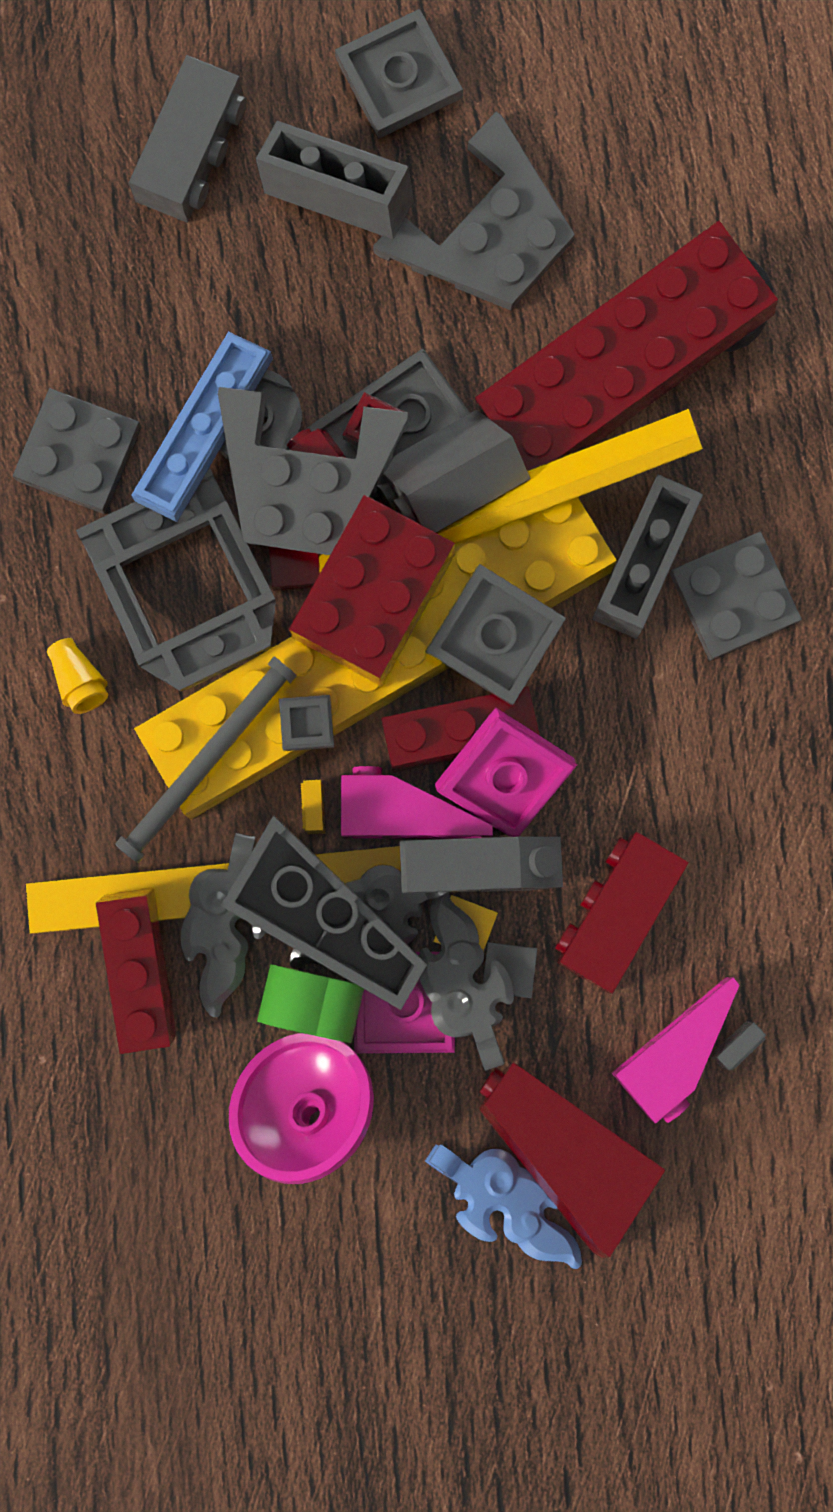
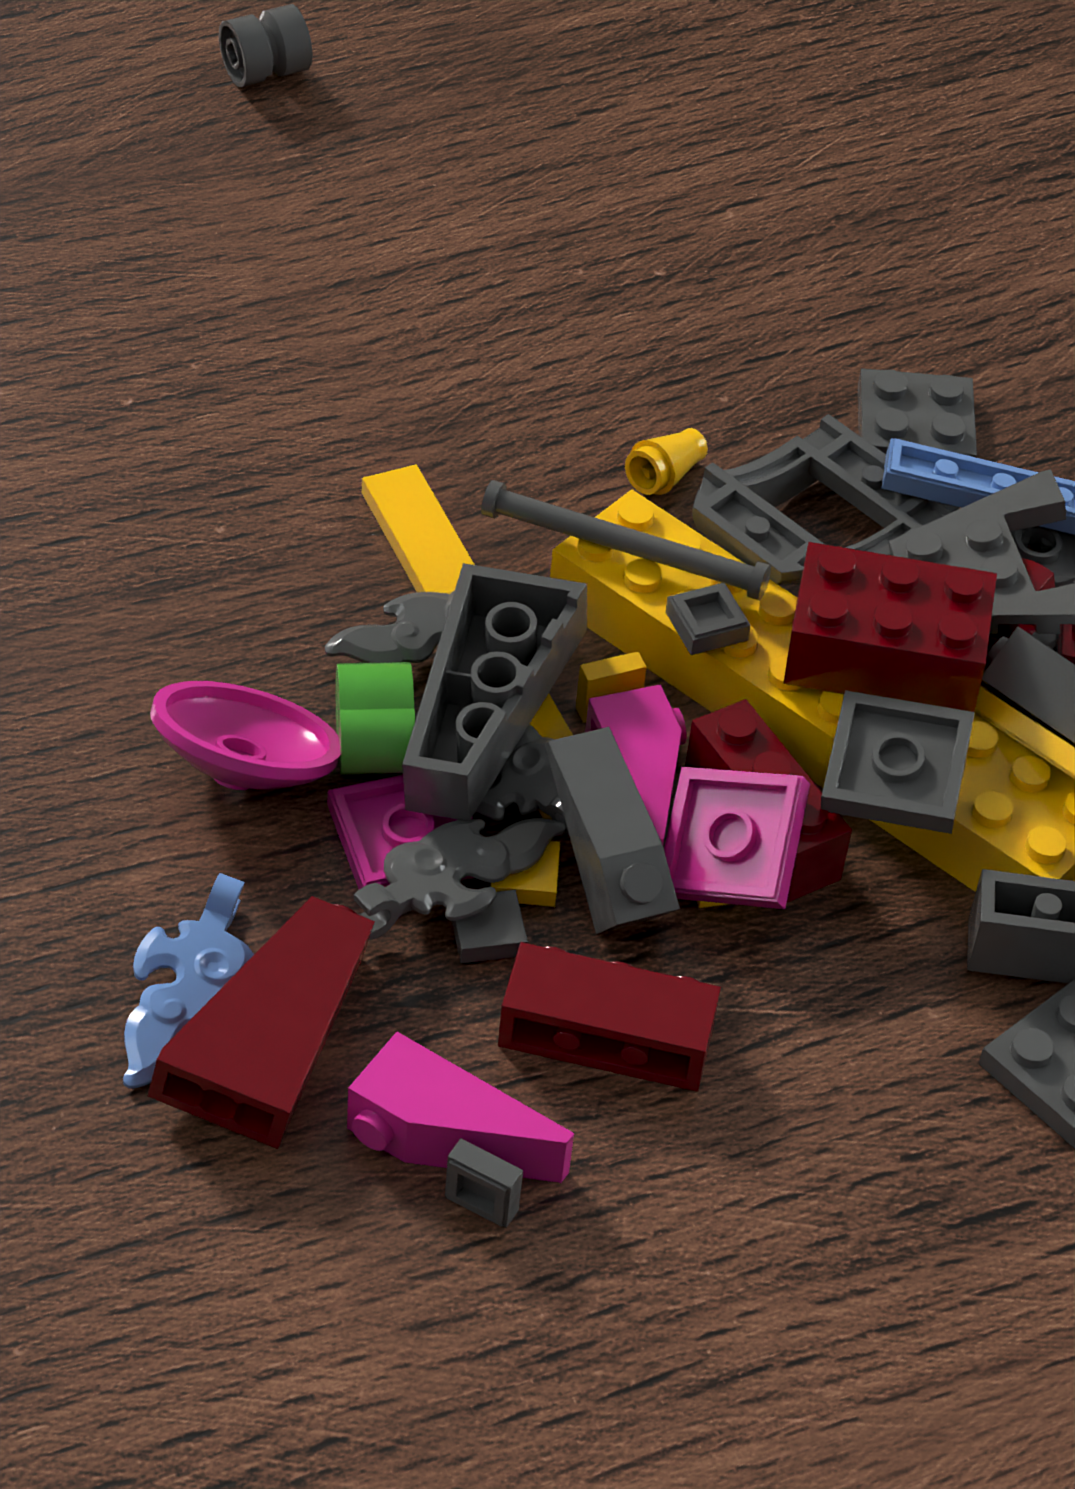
camera: 65 degrees right, 35 degrees down
(136, 970) = (356, 557): dark red brick -> none

